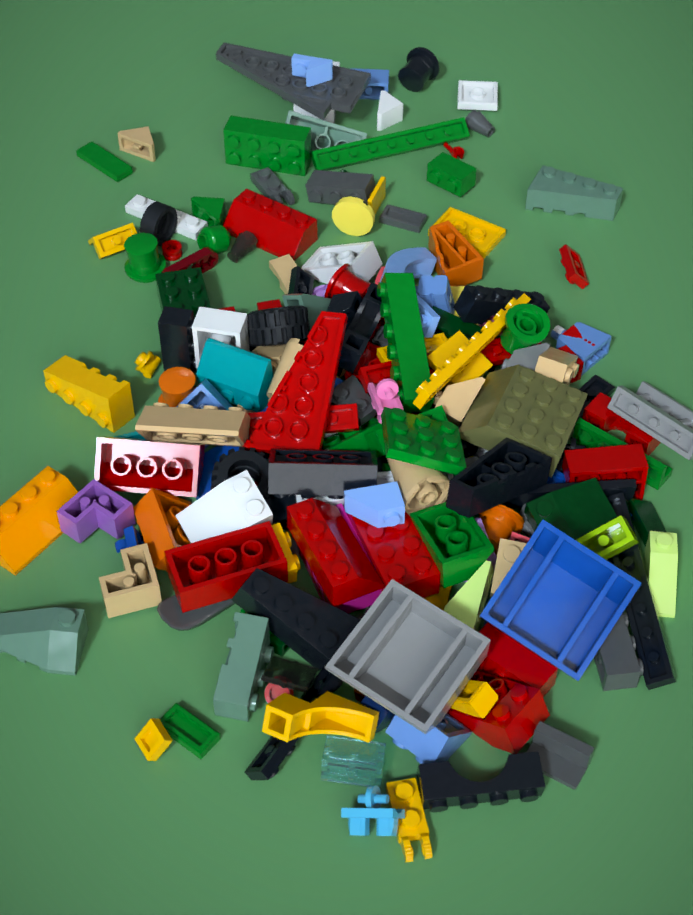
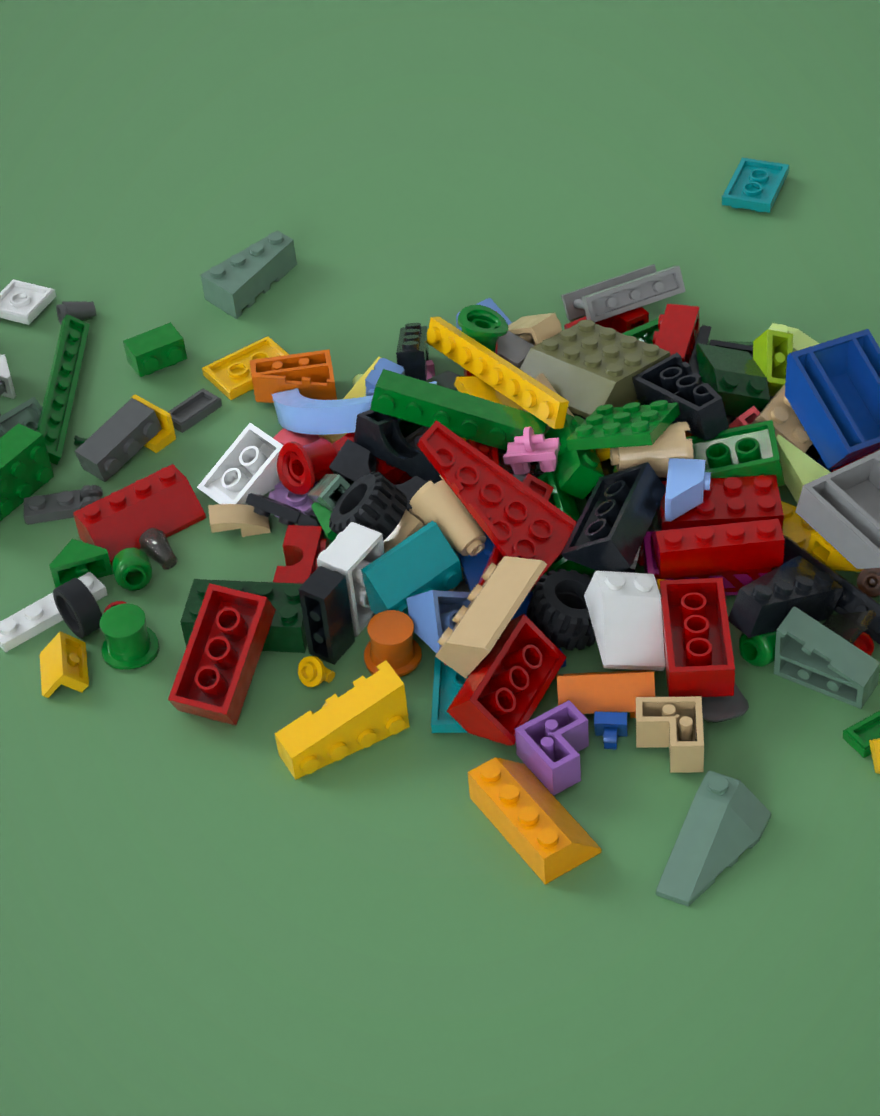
camera: 65 degrees left, 5 degrees down
(123, 301) = (222, 654): none -> red brick
(203, 258) = (167, 601): dark red beam -> none
(353, 216) = (182, 437): light yellow tile -> none
(456, 151) = (111, 345): red hand -> none
(573, 265) = (349, 302): red plate -> none

